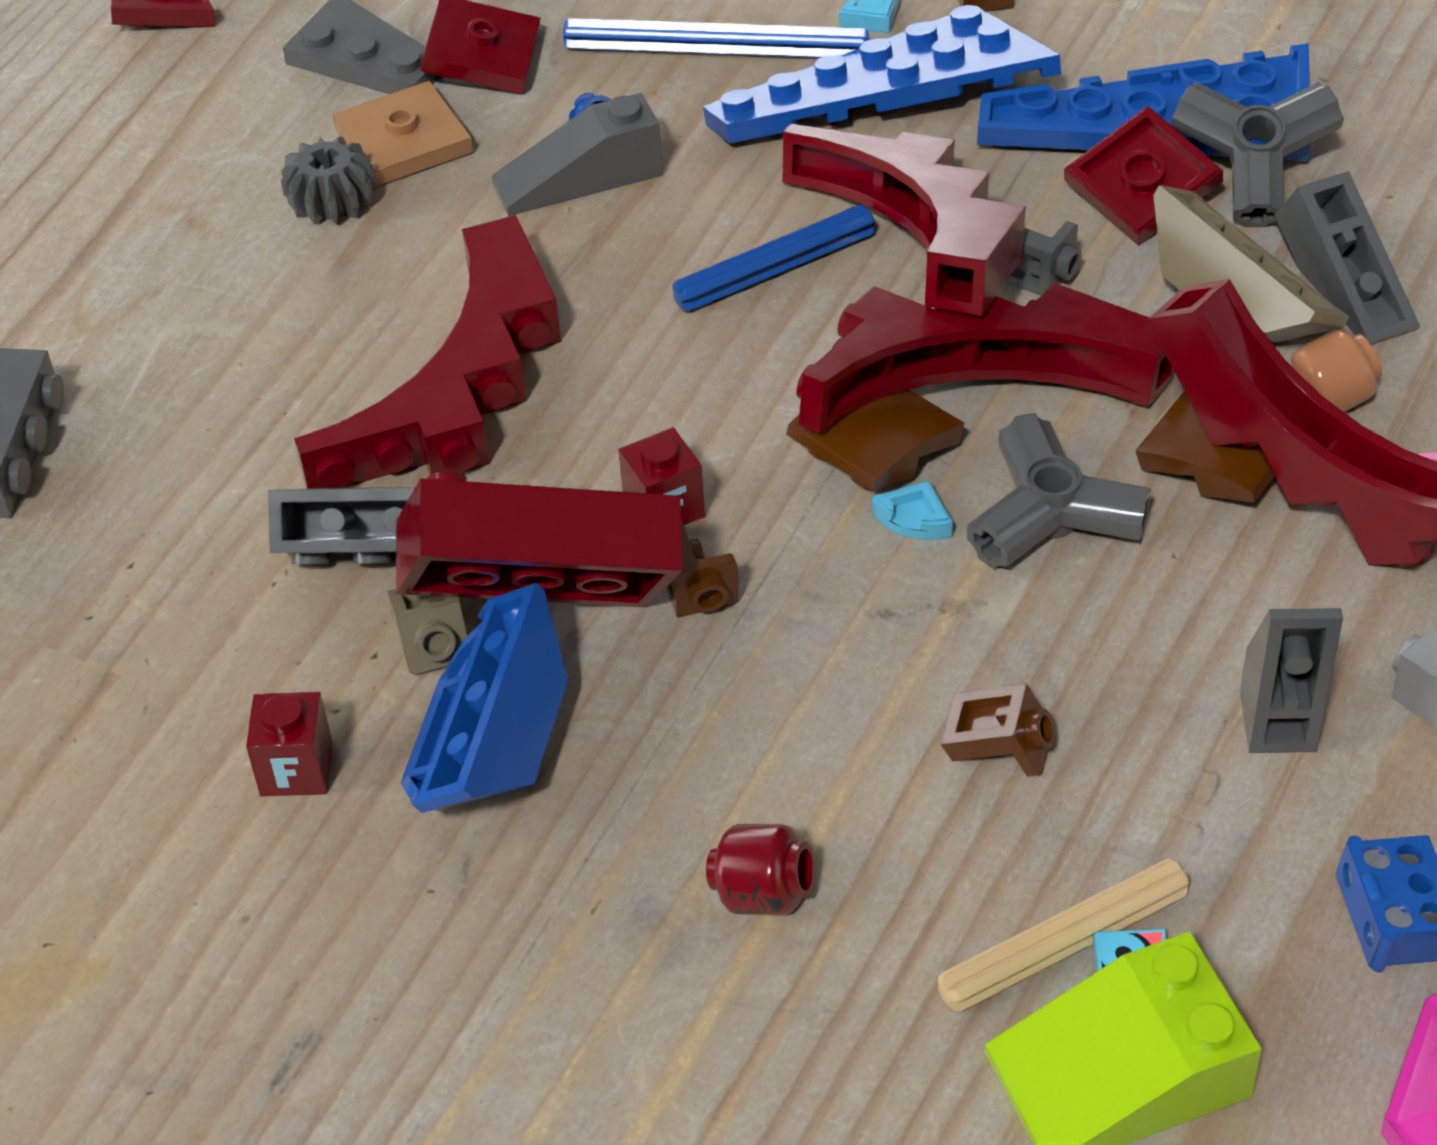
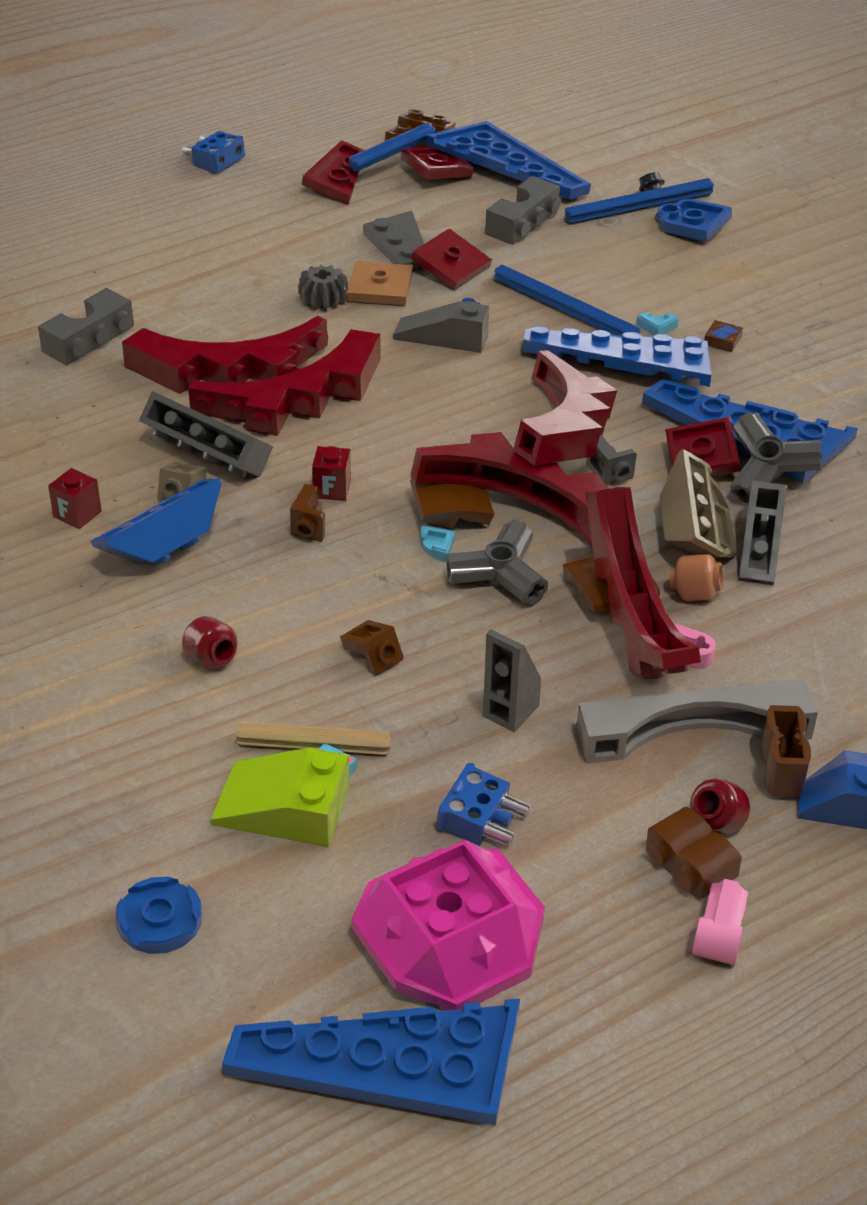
camera: 30 degrees right, 5 degrees down
(232, 415) = (179, 361): none -> dark red arch
(569, 541) = (241, 463): dark red brick -> none
(773, 258) = (486, 407): blue axle -> none

